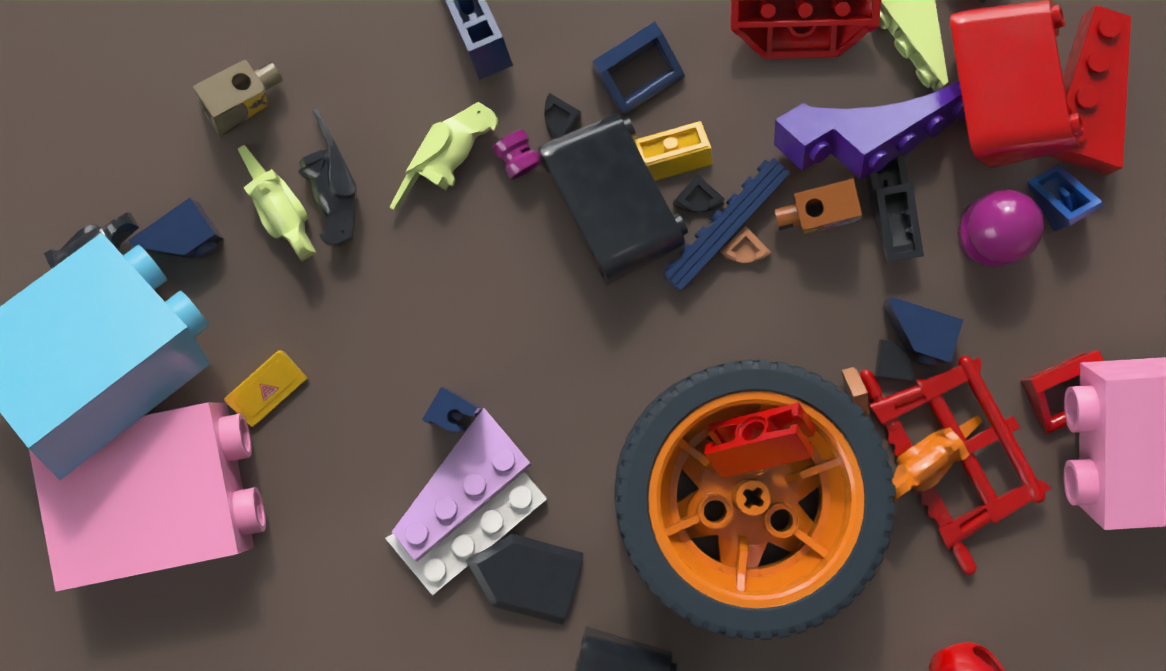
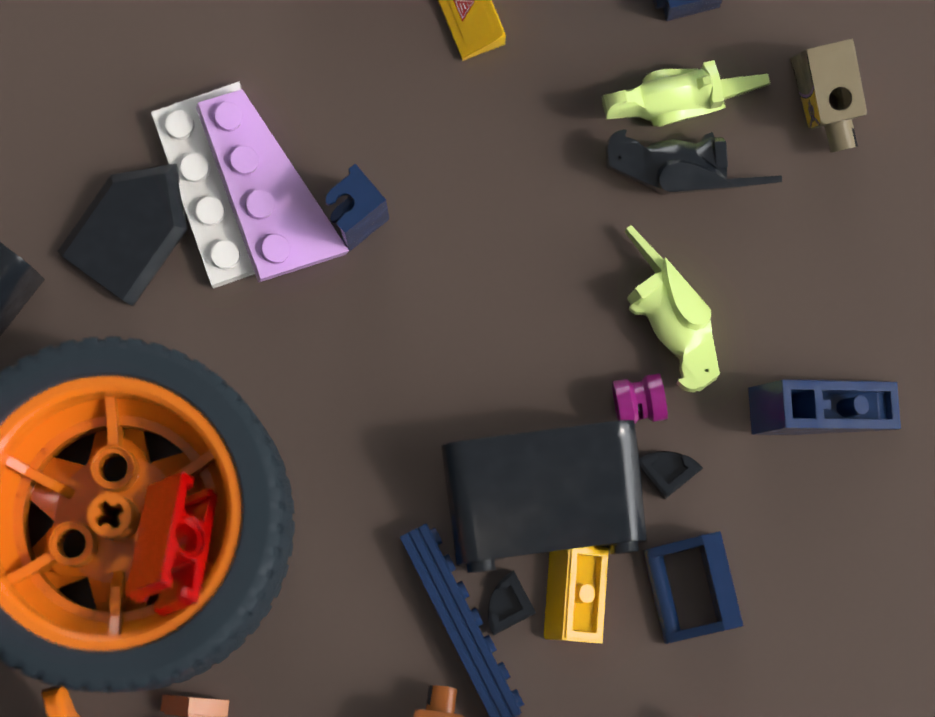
camera: 110 degrees right, 5 degrees down
(744, 248) = (424, 638): nougat tile -> none

